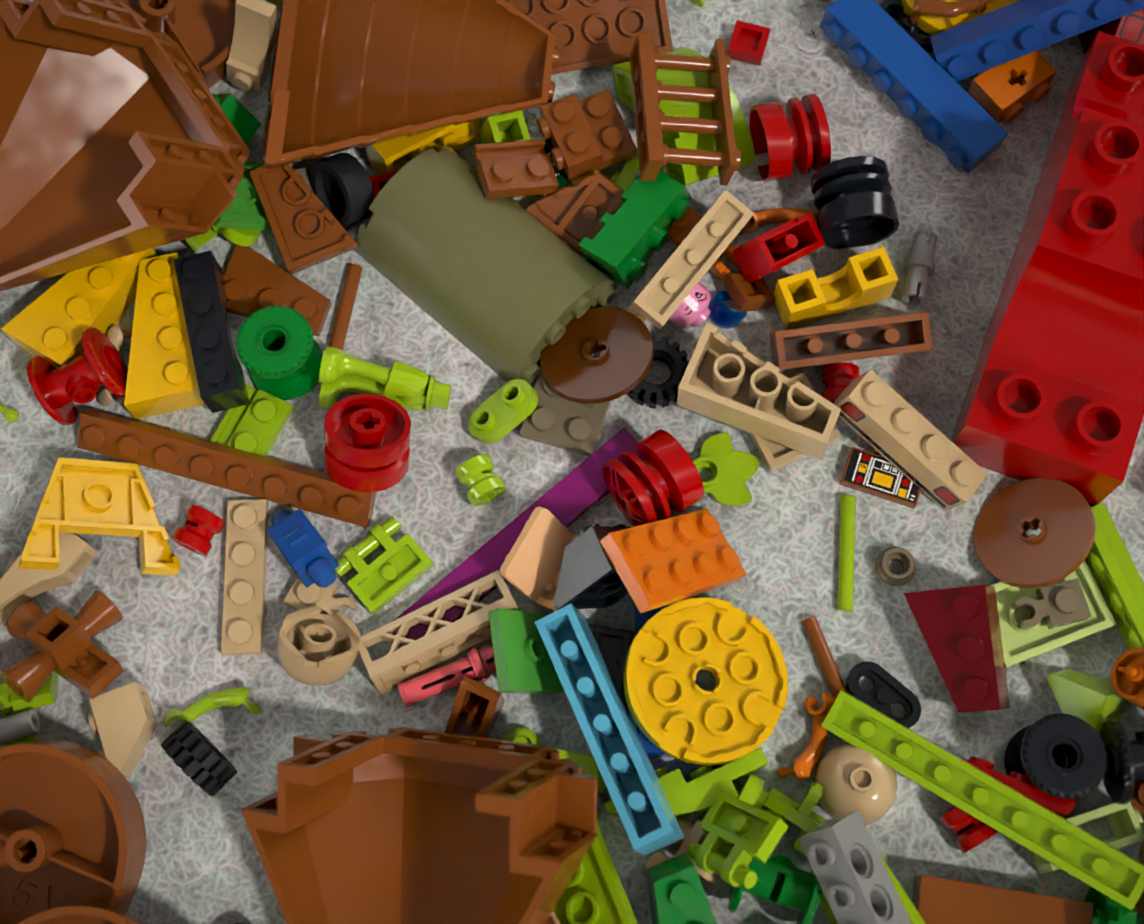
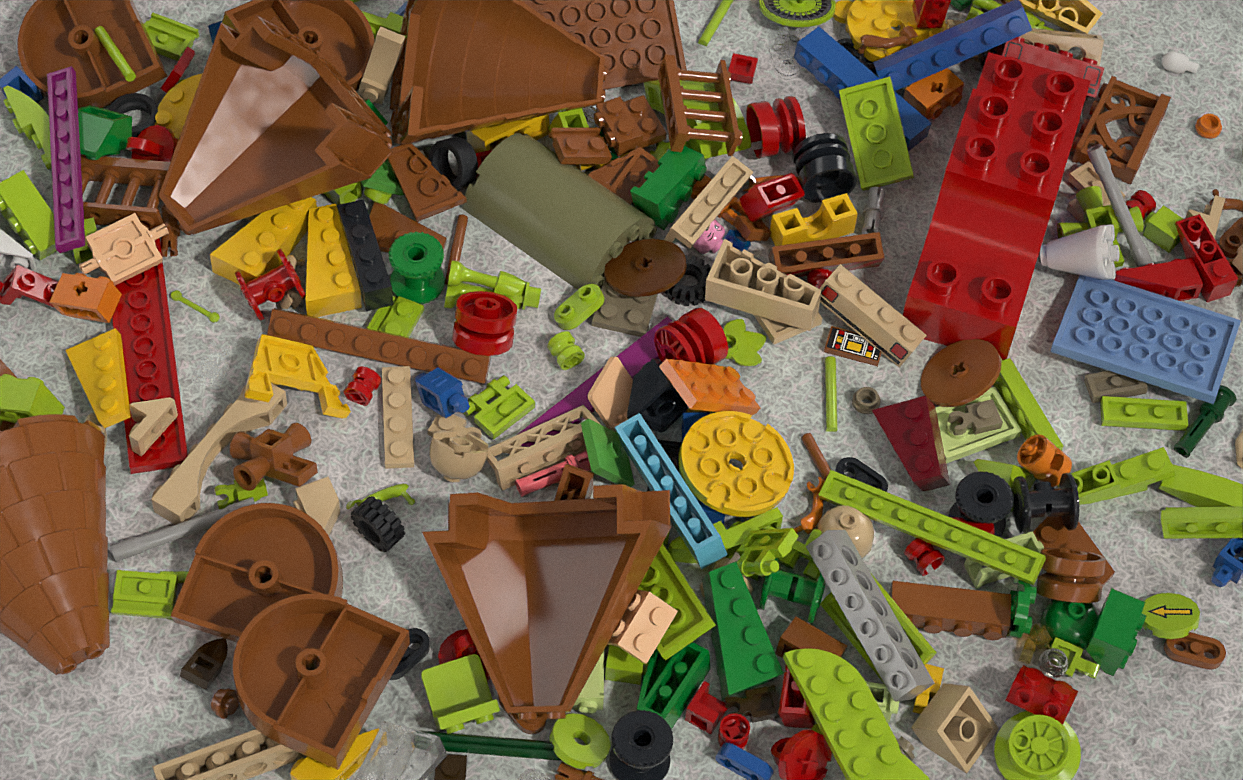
camera: 10 degrees left, 15 degrees down
(930, 150) = (876, 133): none -> lime plate

